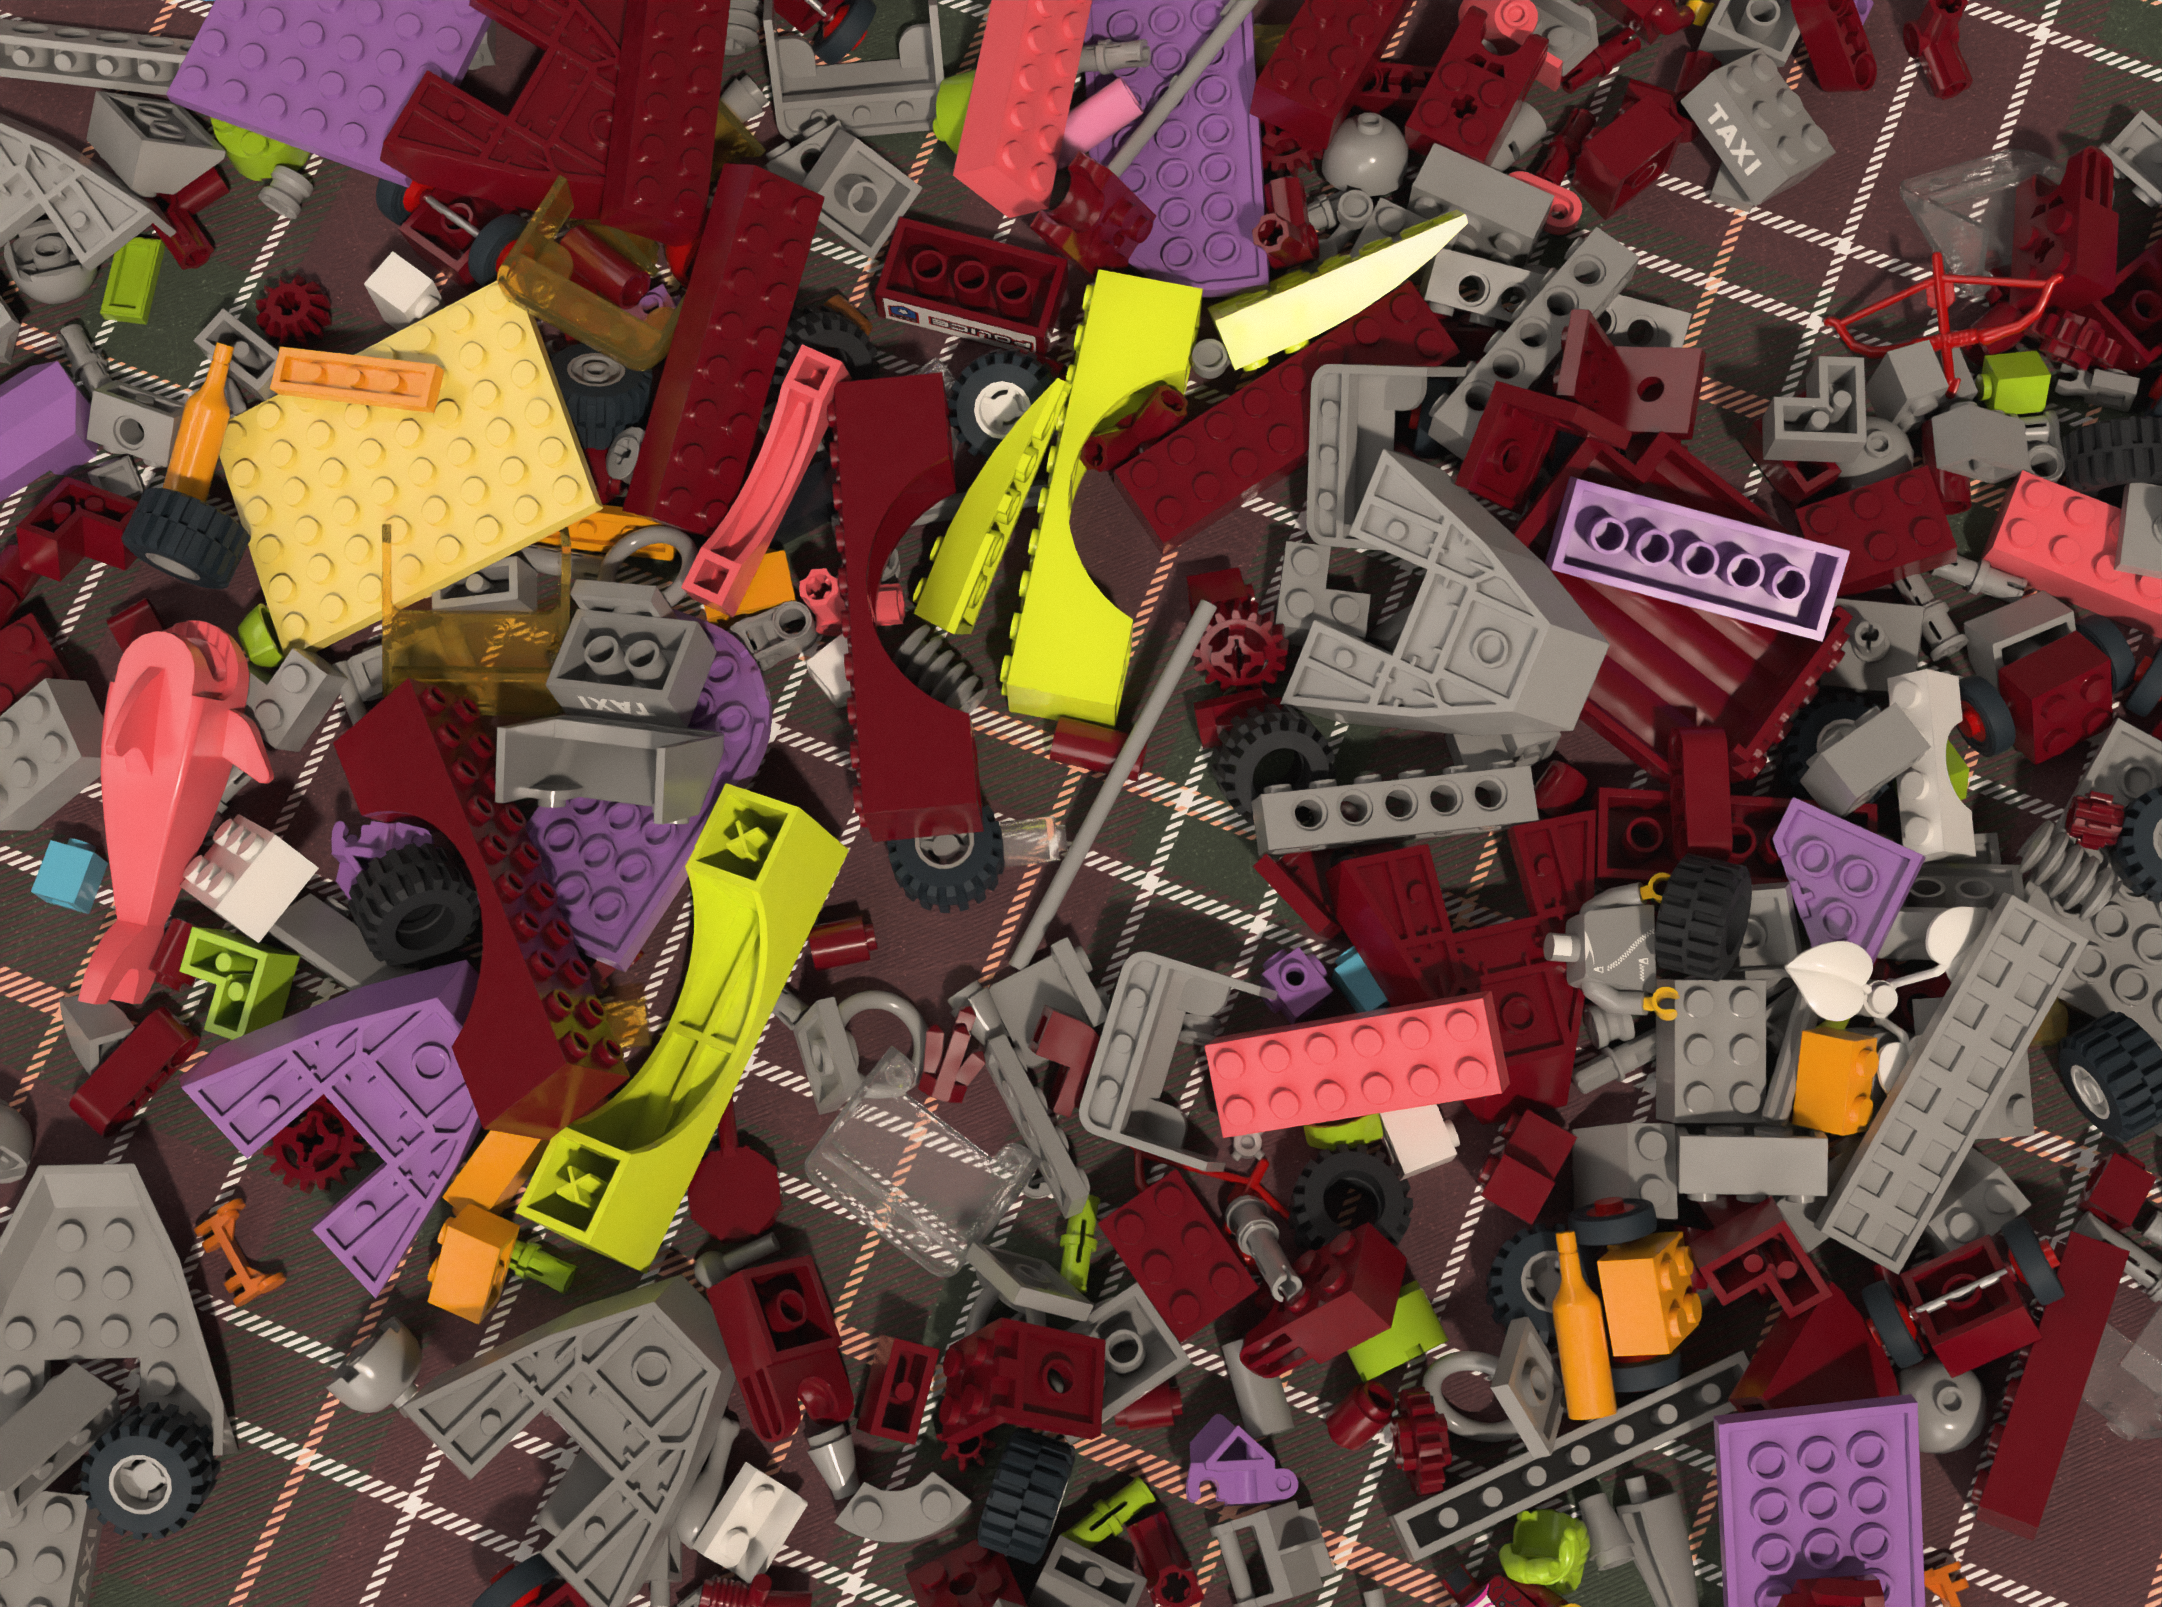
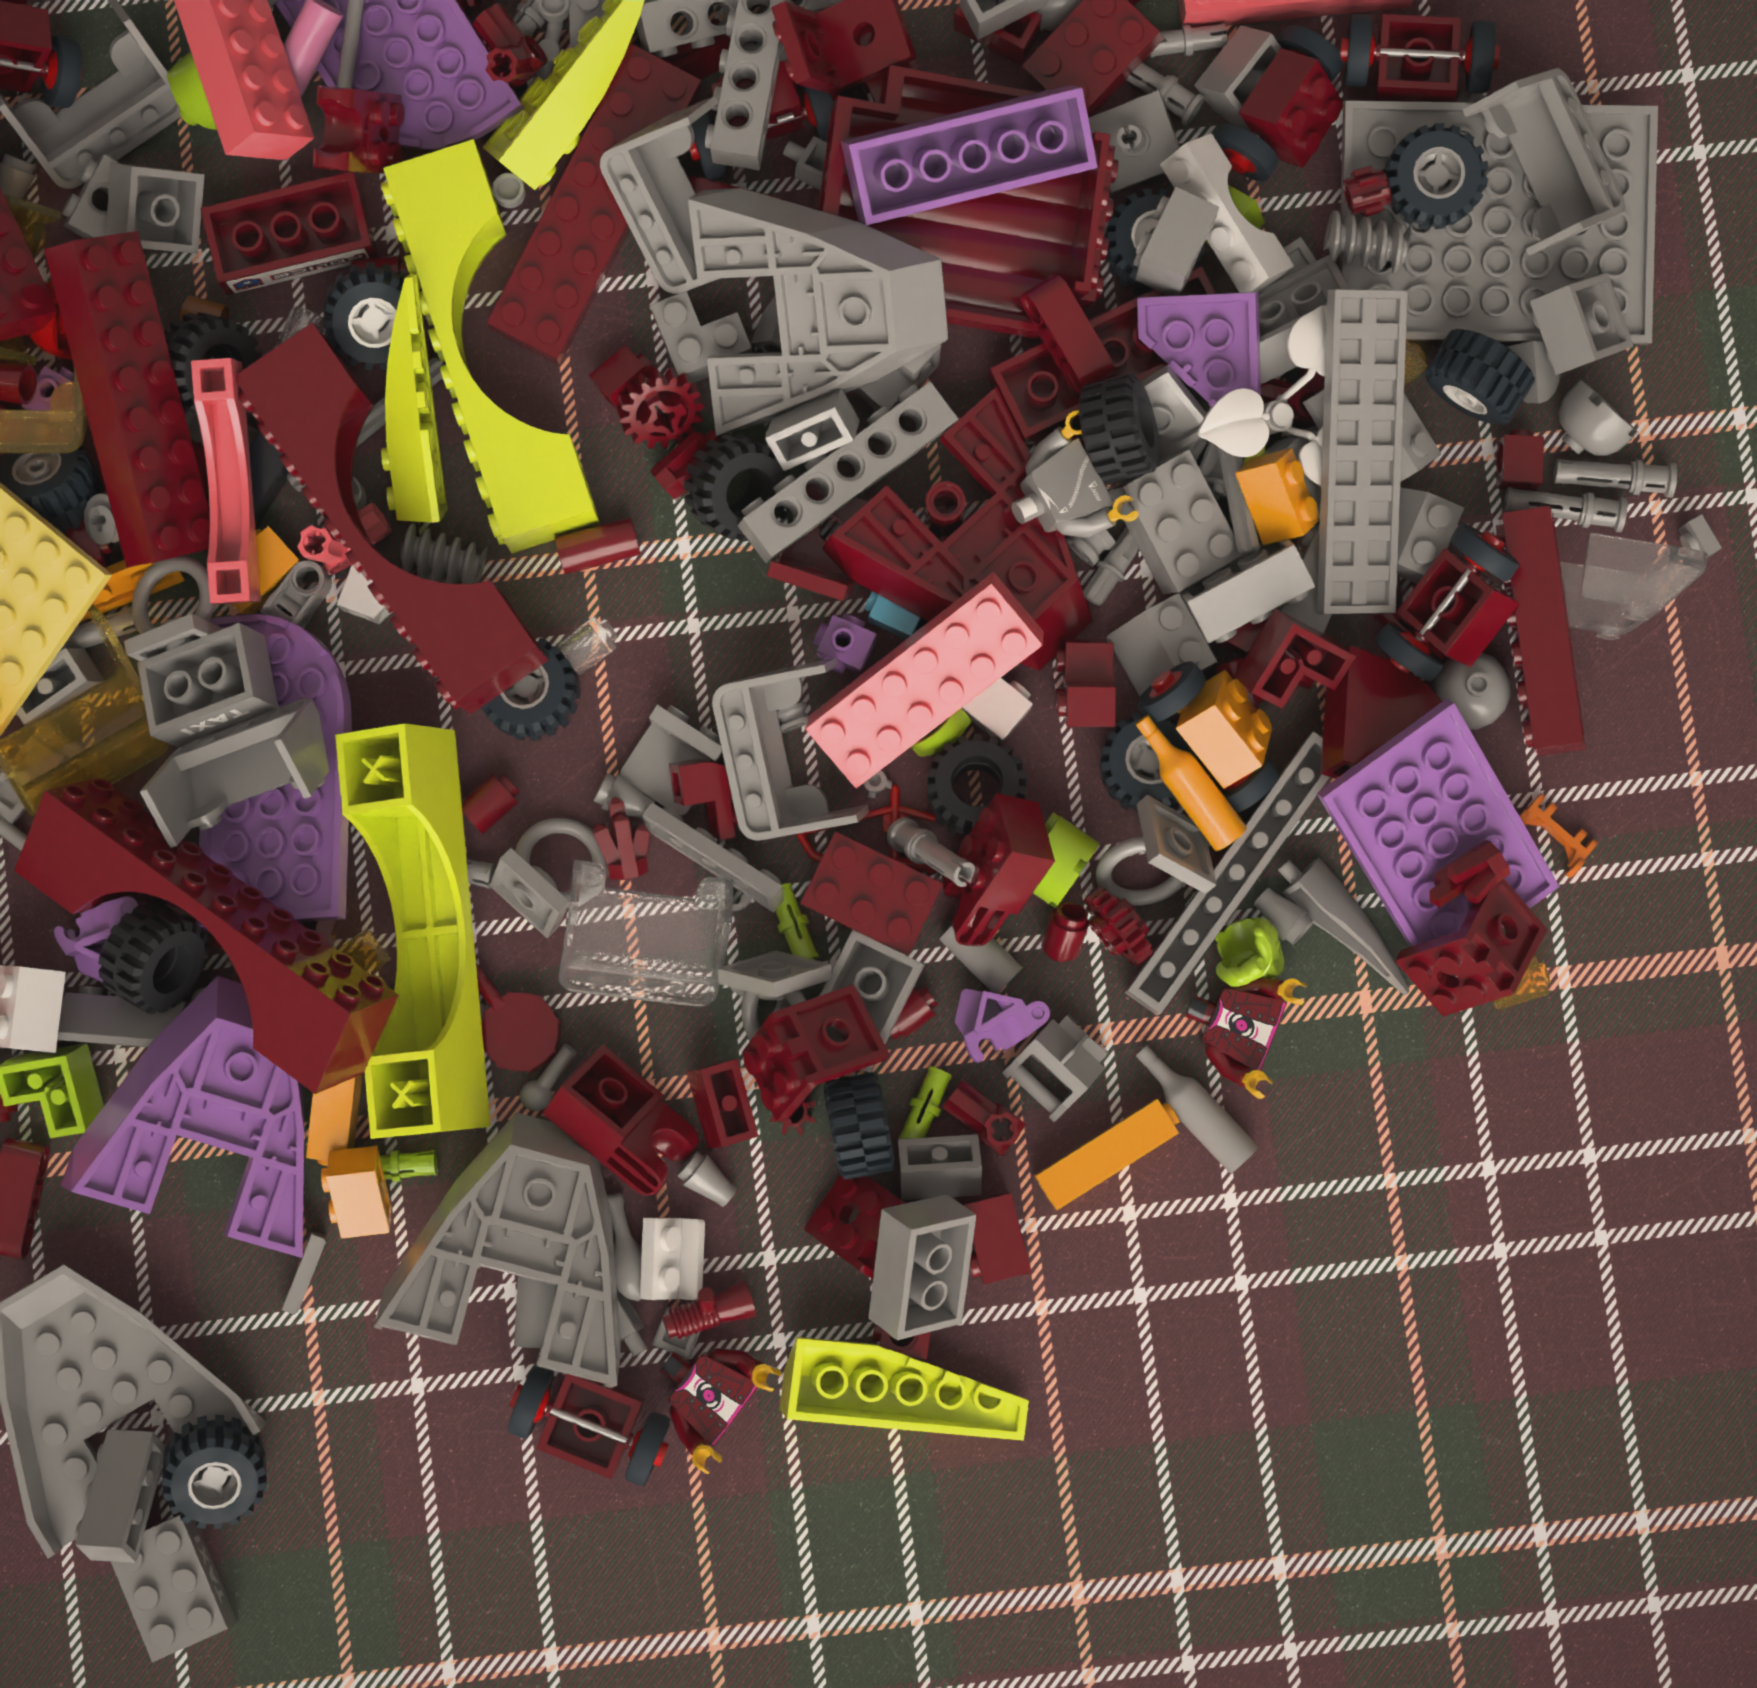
camera: 30 degrees left, 10 degrees up
(224, 1229) = (156, 1273): orange piece -> none
(313, 1161) = (191, 1187): dark red gear -> none
(369, 1316) = (304, 1273): none -> light grey tile
(379, 1370) = (335, 1306): light grey cylinder -> none
(904, 1514) = (779, 1188): light grey brick -> none
(1112, 785) = (625, 567): light grey piece -> none
(1136, 431) = (485, 281): dark red piece -> none
(1382, 747) = (812, 429): none -> light grey brick
(1478, 887) = (948, 494): none -> dark red pin
(1525, 426) = (787, 122): dark red bracket -> none
(1559, 790) = (960, 386): dark red brick -> none

